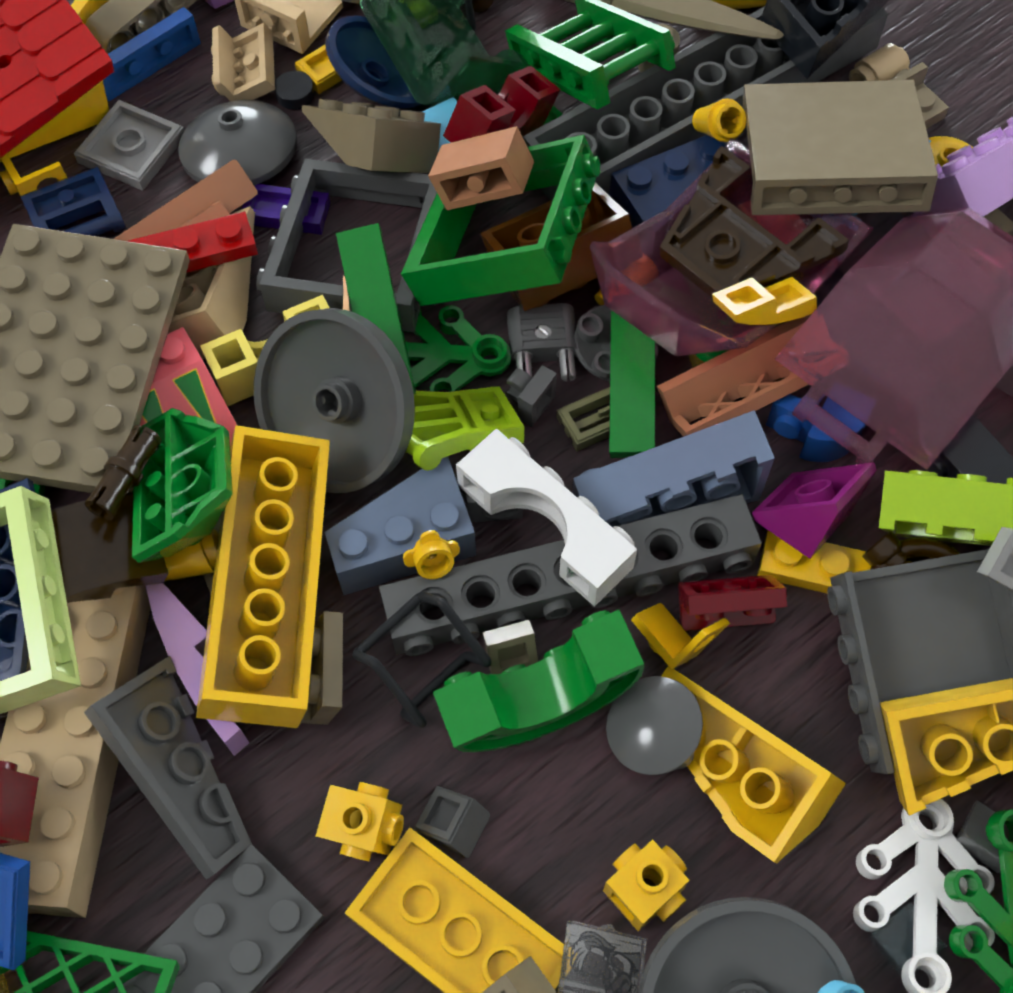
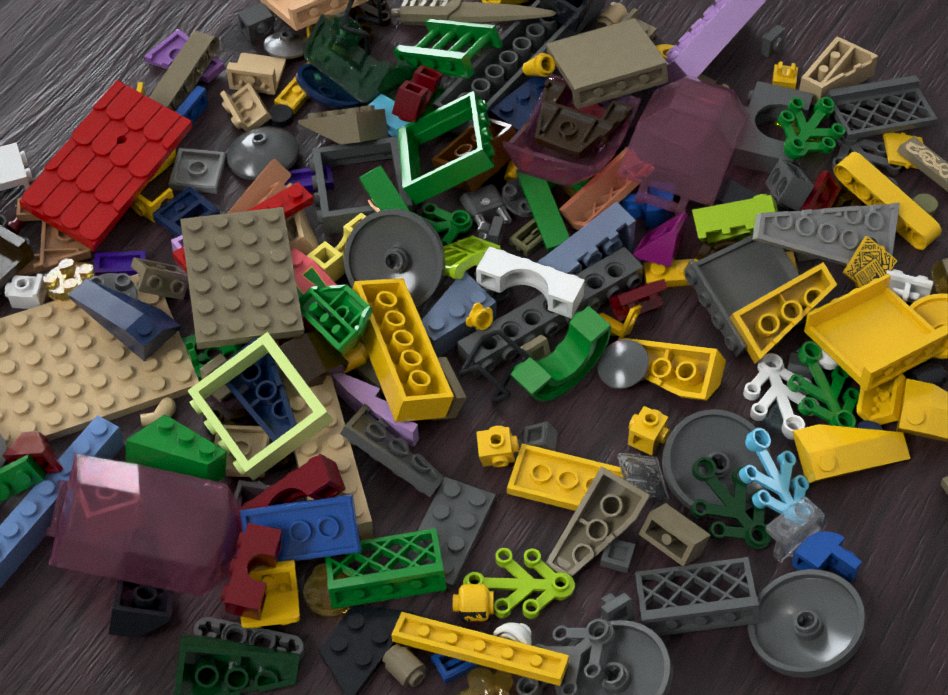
camera: 20 degrees left, 10 degrees down
(123, 472) = (307, 318): dark brown pin -> none
(481, 168) = (424, 123): nougat brick -> none
(774, 304) = (602, 150): yellow slope -> none

